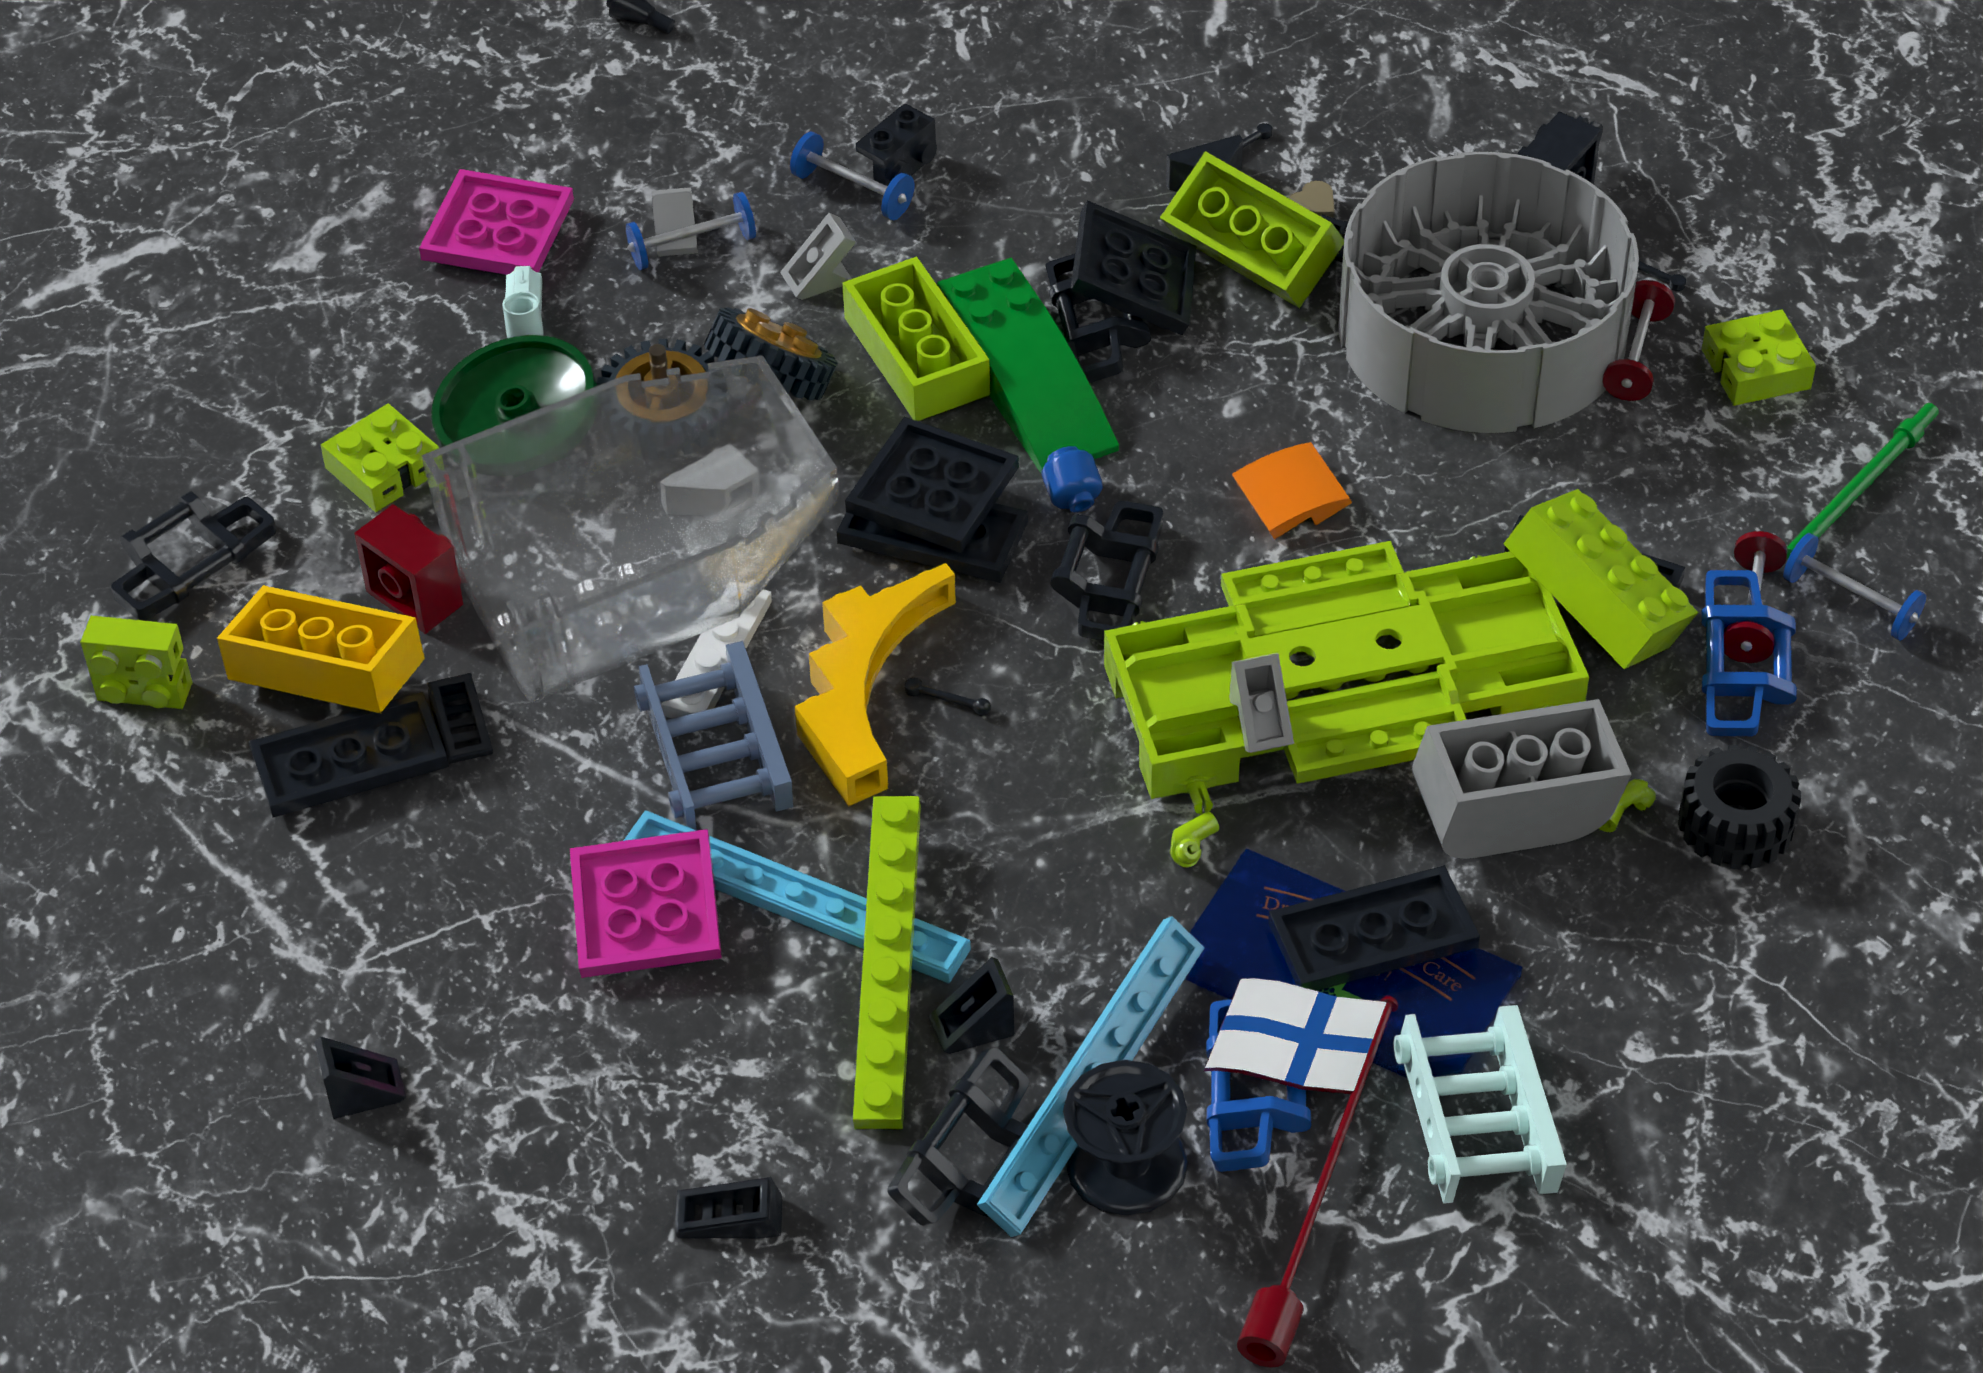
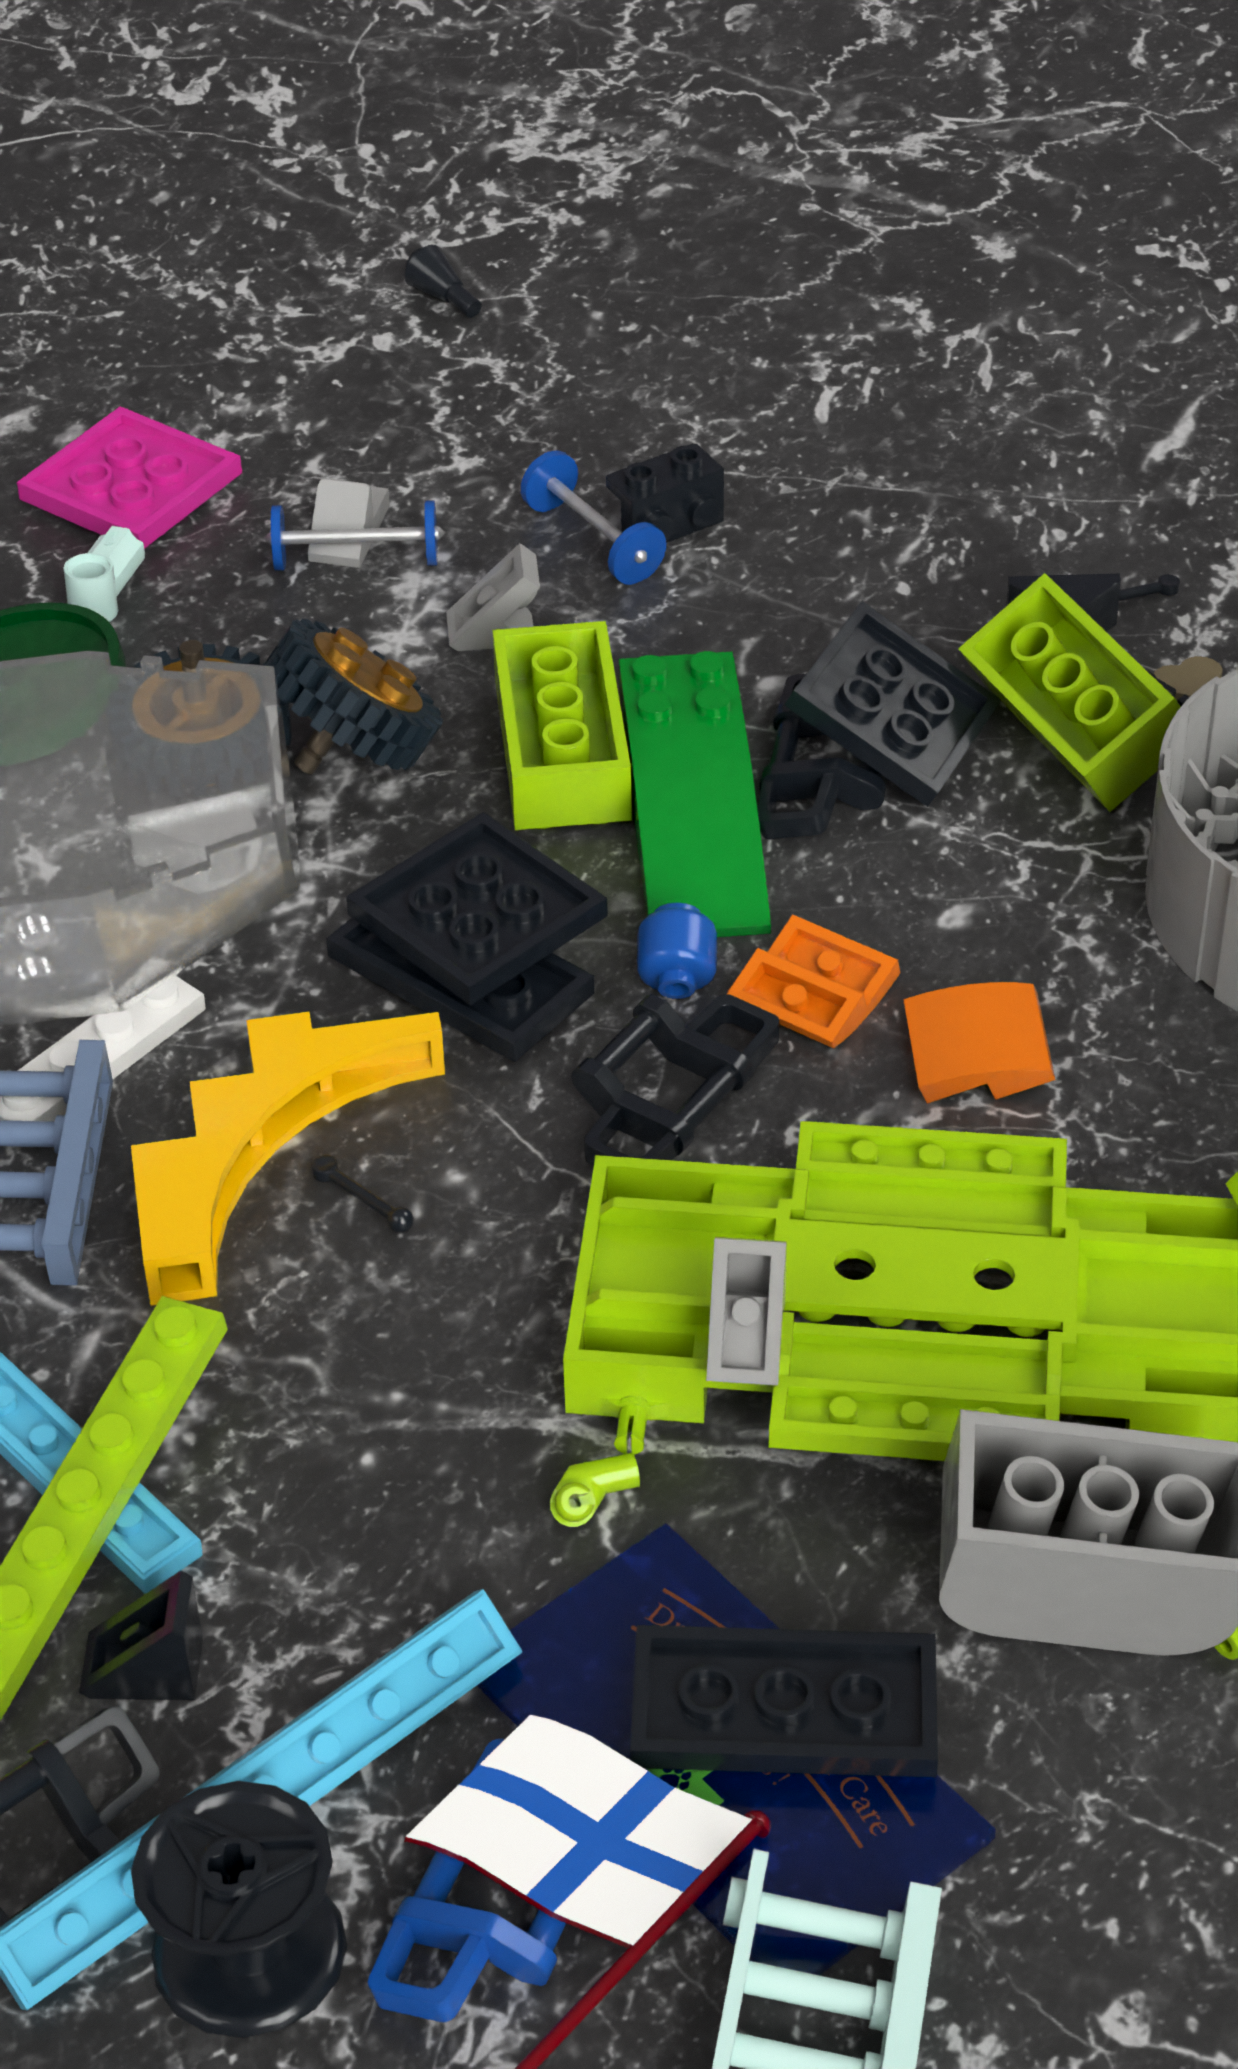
camera: 20 degrees right, 5 degrees down
(1168, 475) = (816, 981): none -> orange slope

